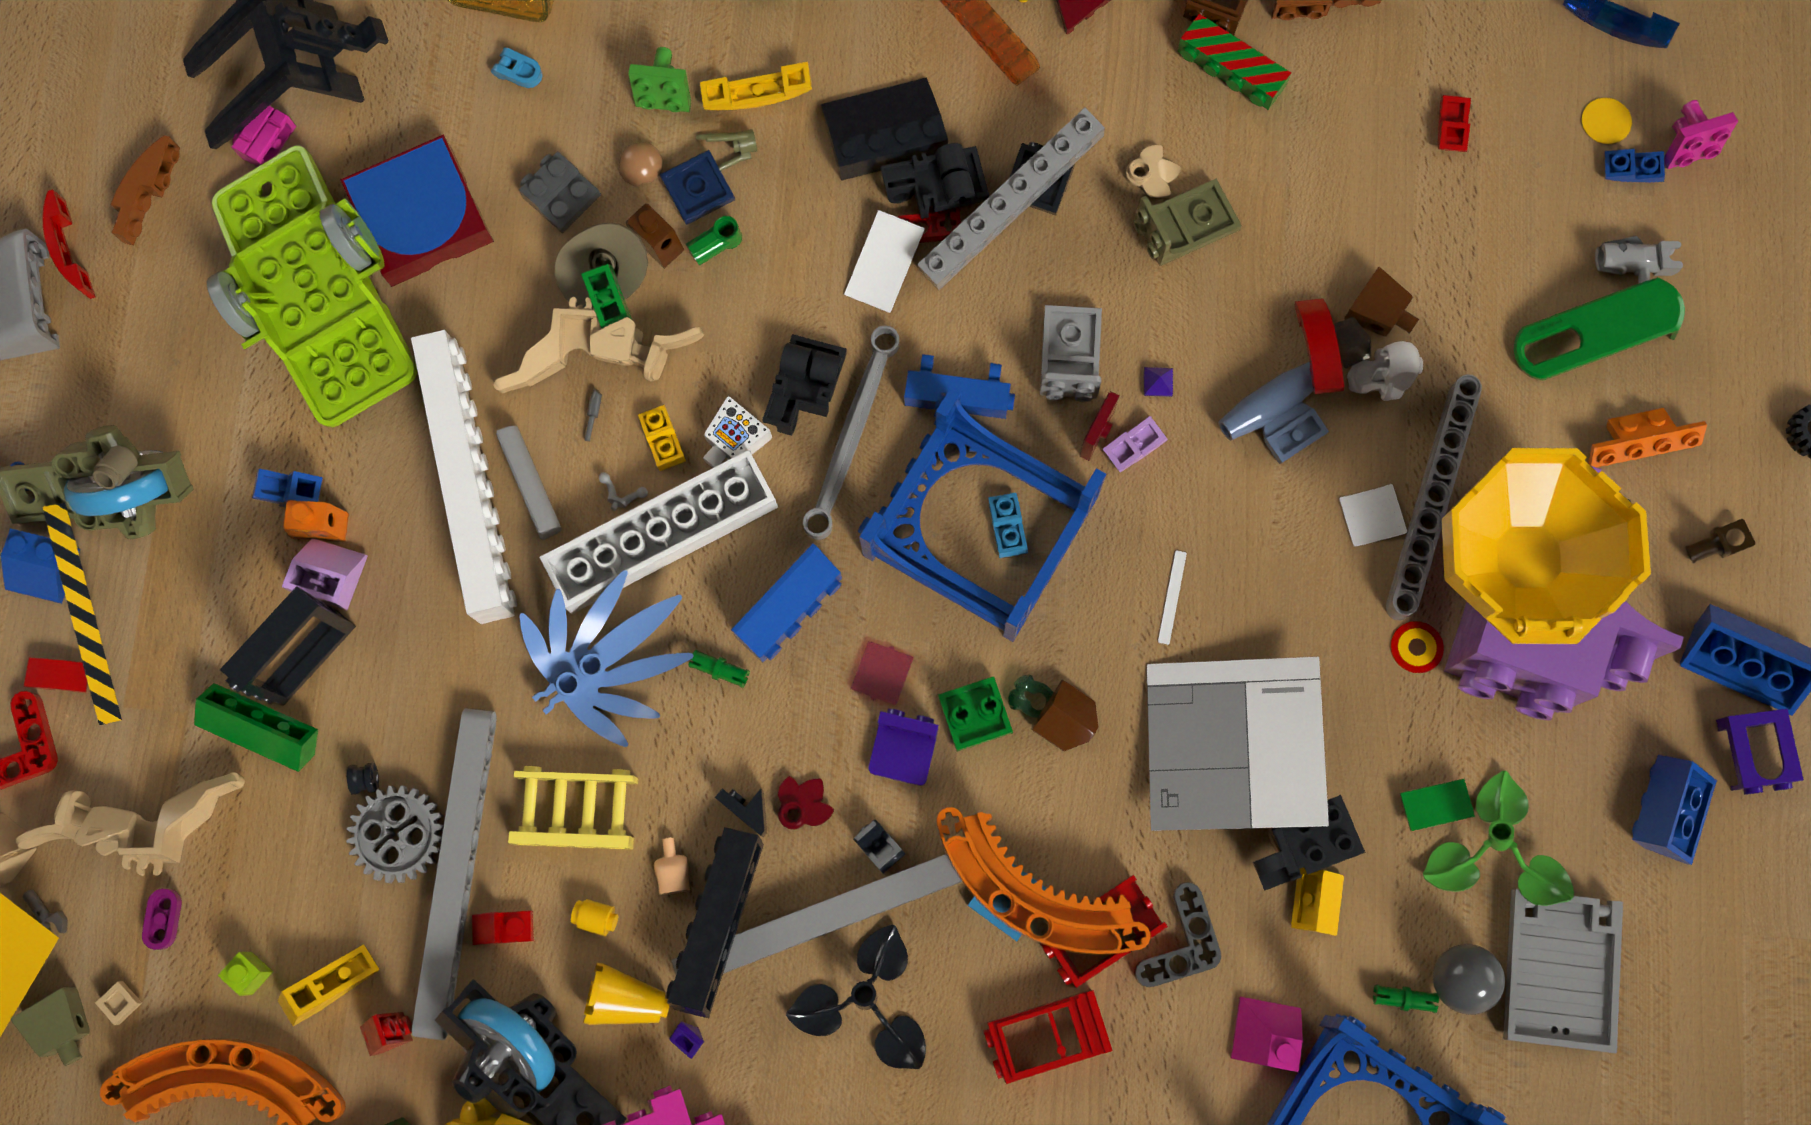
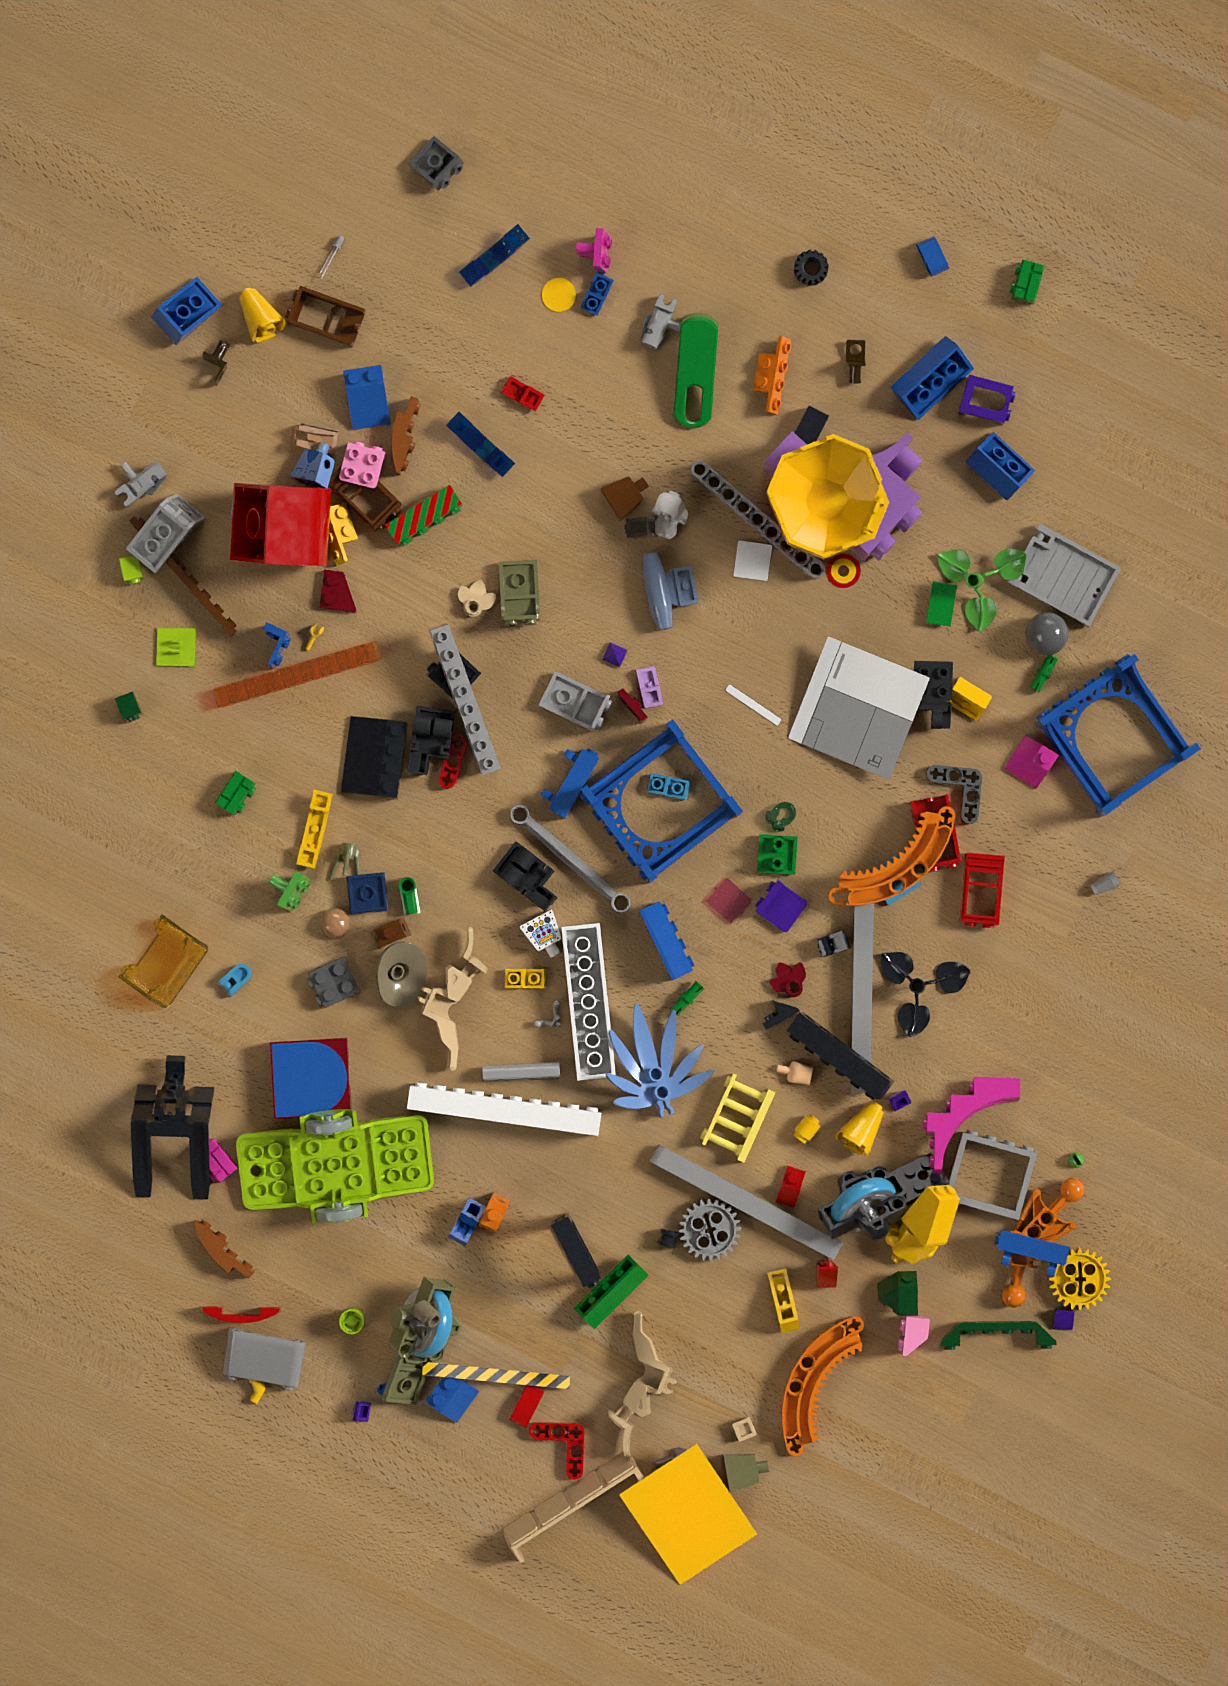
camera: 75 degrees left, 10 degrees up
(99, 390) = (352, 1320): none -> lime wheel
(159, 918) = (704, 1387): magenta plate -> none
(245, 973) = (757, 1346): lime brick -> none
(326, 572) = (529, 1216): lavender slope -> none
(593, 411) = (490, 1015): dark grey piece -> none
(606, 295) = (425, 977): green brick -> none
(884, 261) = (466, 793): white sticker -> none
(1067, 718) = (802, 800): reddish brown slope -> none
(1321, 345) = (635, 547): red slope -> none
(1362, 93) = (480, 444): none -> clear blue slope

